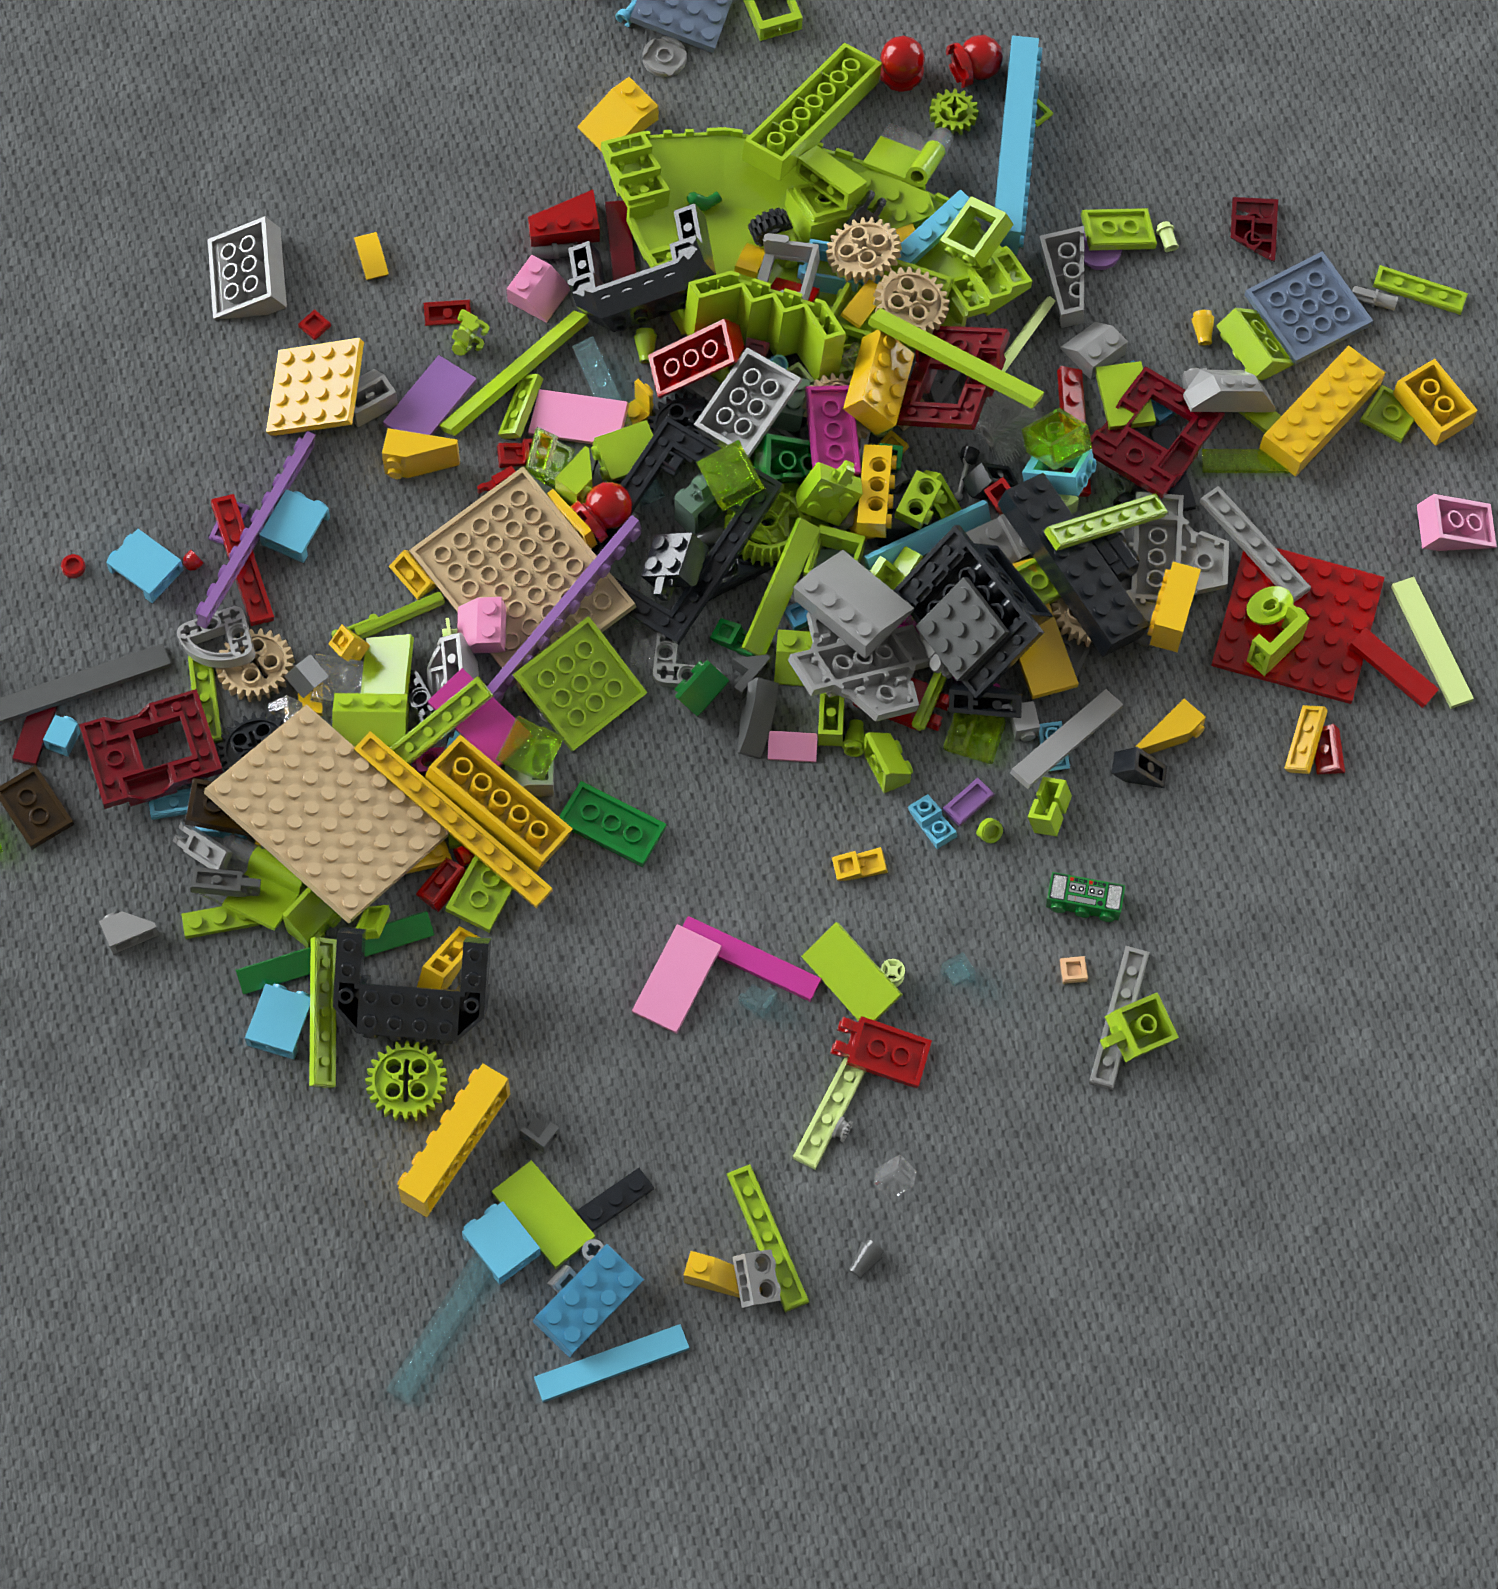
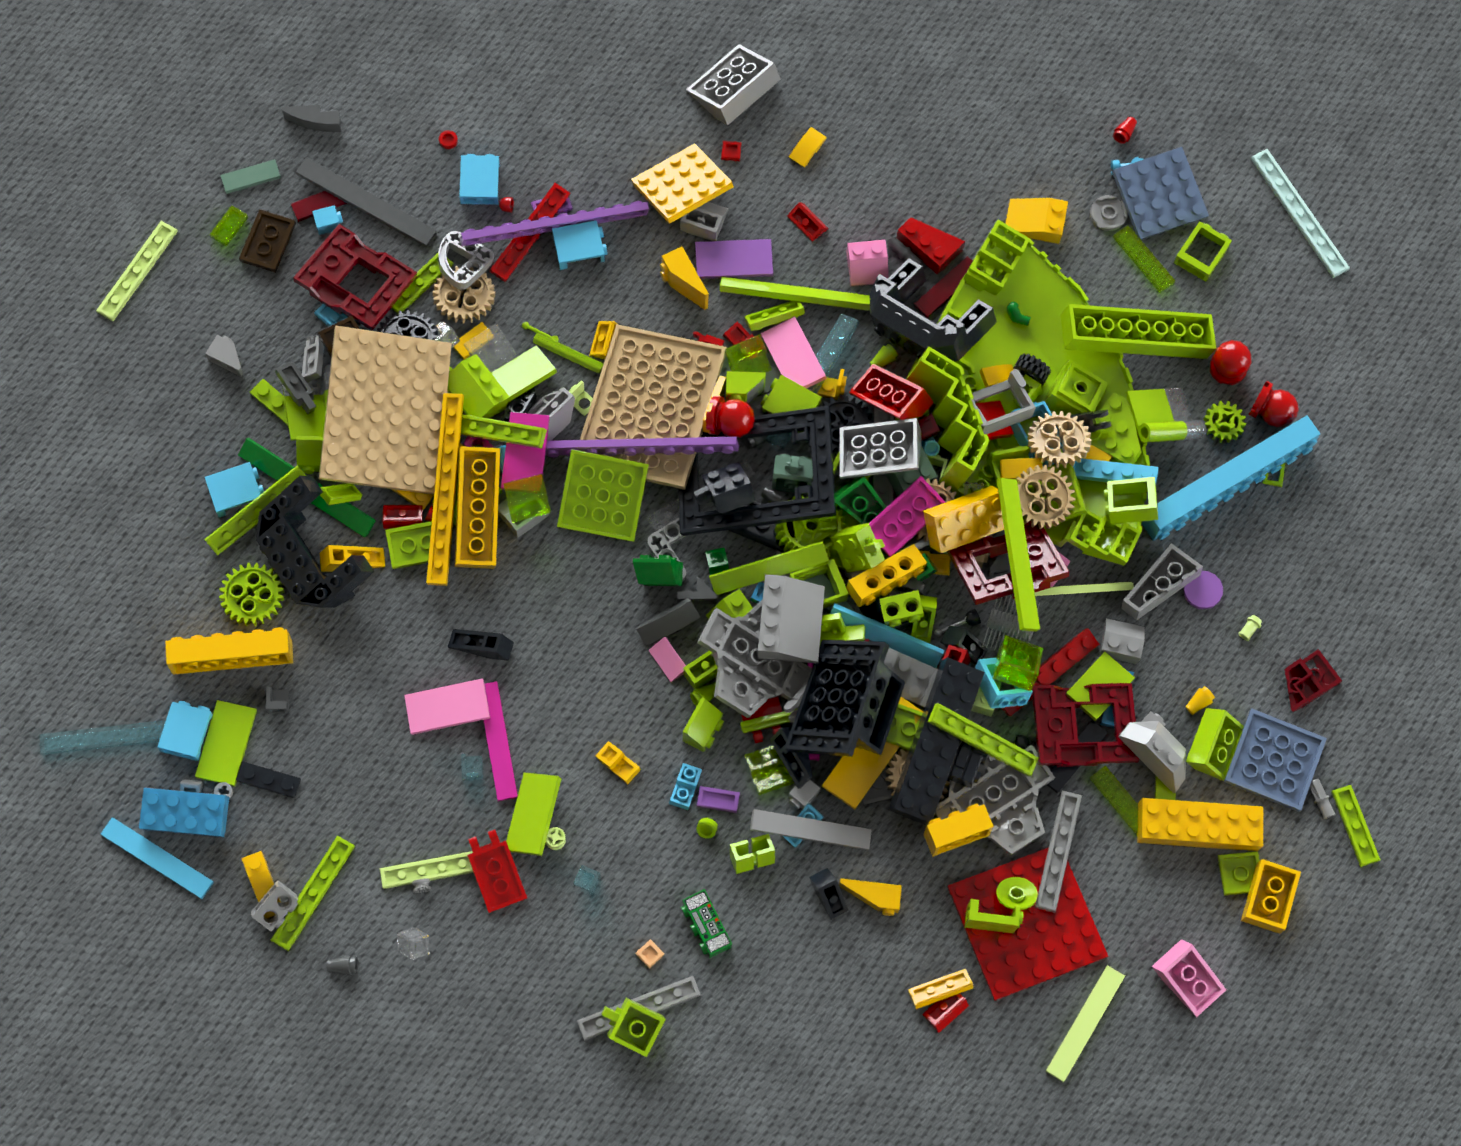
camera: 50 degrees right, 5 degrees up
(306, 676) = (476, 329): panel -> none
(348, 644) = (520, 338): yellow slope -> none
(467, 333) = (798, 244): lime piece -> none
(483, 624) = (596, 408): bright pink slope -> none
(612, 824) = (524, 587): green plate -> none
(637, 902) = (480, 643): none -> black slope
(730, 475) = (812, 475): clear neon green brick -> none
(735, 61) = (1144, 259): none -> clear neon green tile
(831, 177) = (1098, 379): lime brick -> none
(962, 629) = (821, 703): dark grey plate -> none
(1118, 229) = (1226, 591): lime tile -> none
(1393, 667) = (1042, 1010): red tile -> none

